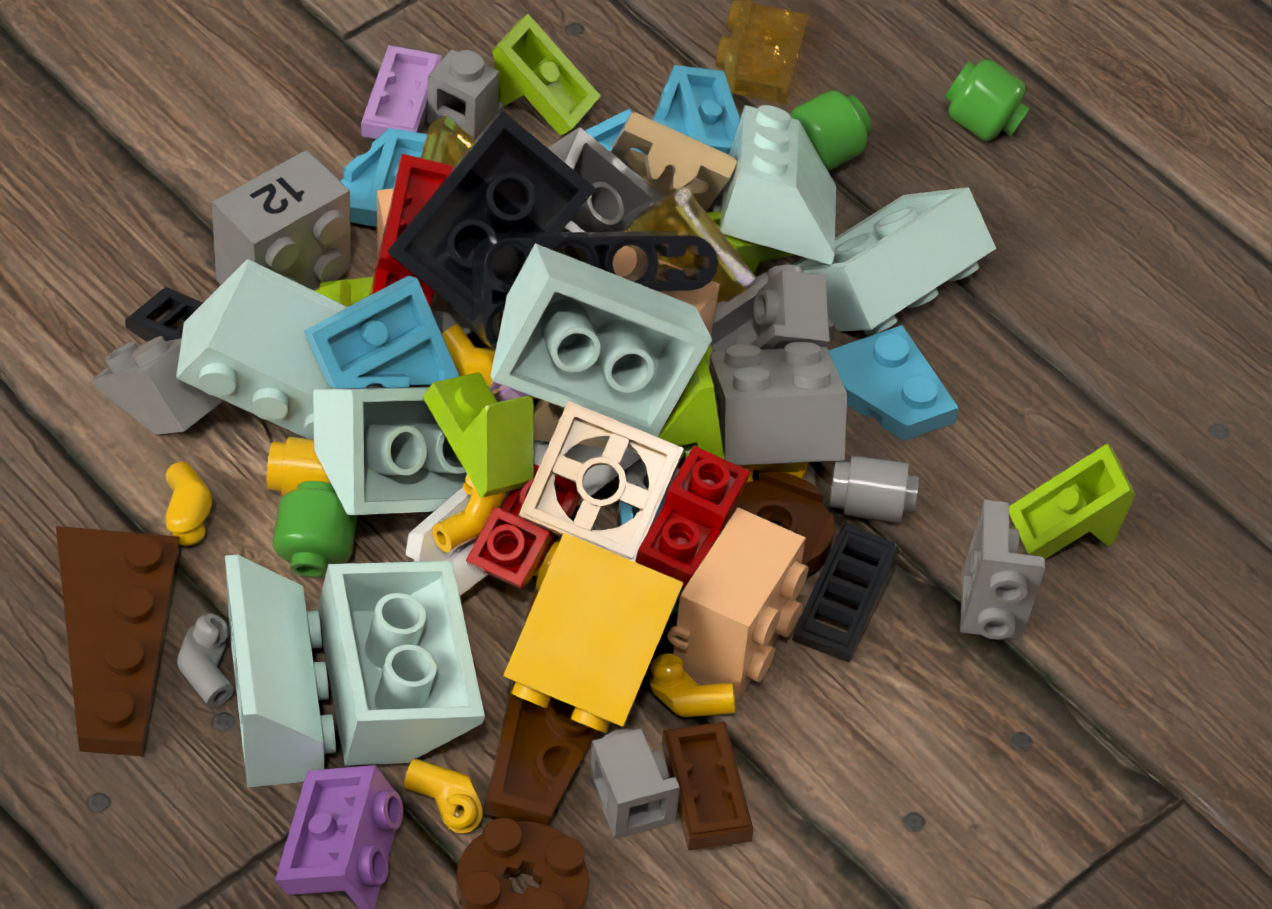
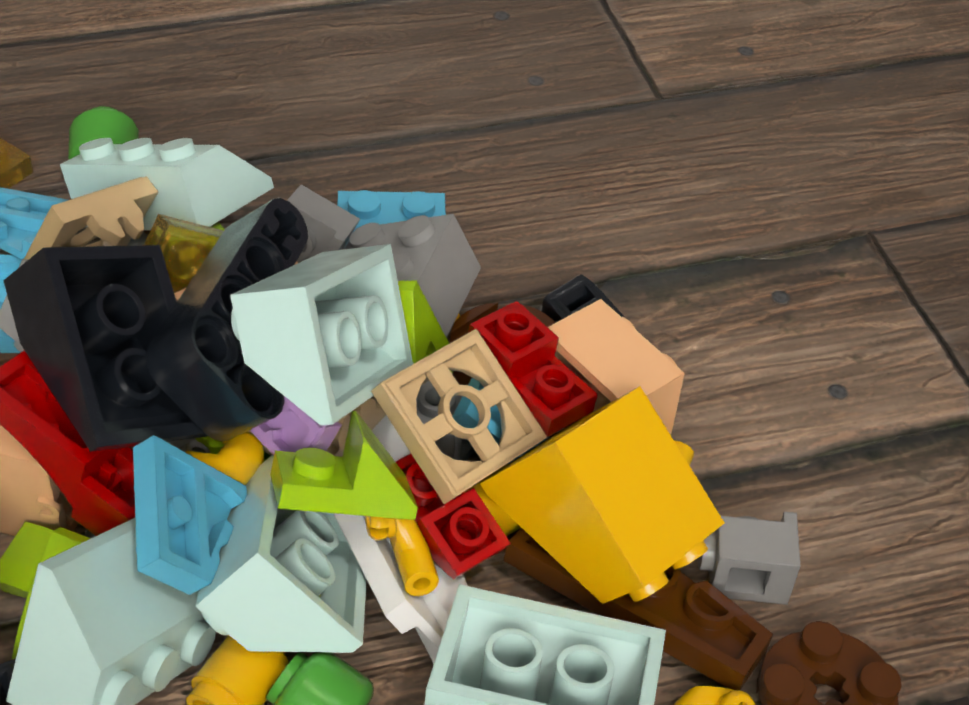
camera: 65 degrees left, 5 degrees down
(711, 789) = (766, 497): reddish brown plate -> none
(873, 488) = (505, 270): light grey brick -> none
(901, 257) = (277, 137): light aqua slope -> none
(987, 99) = (143, 52): bright green head -> none
(997, 581) = (649, 226): light grey bracket -> none
(1081, 499) = (592, 161): lime slope -> none

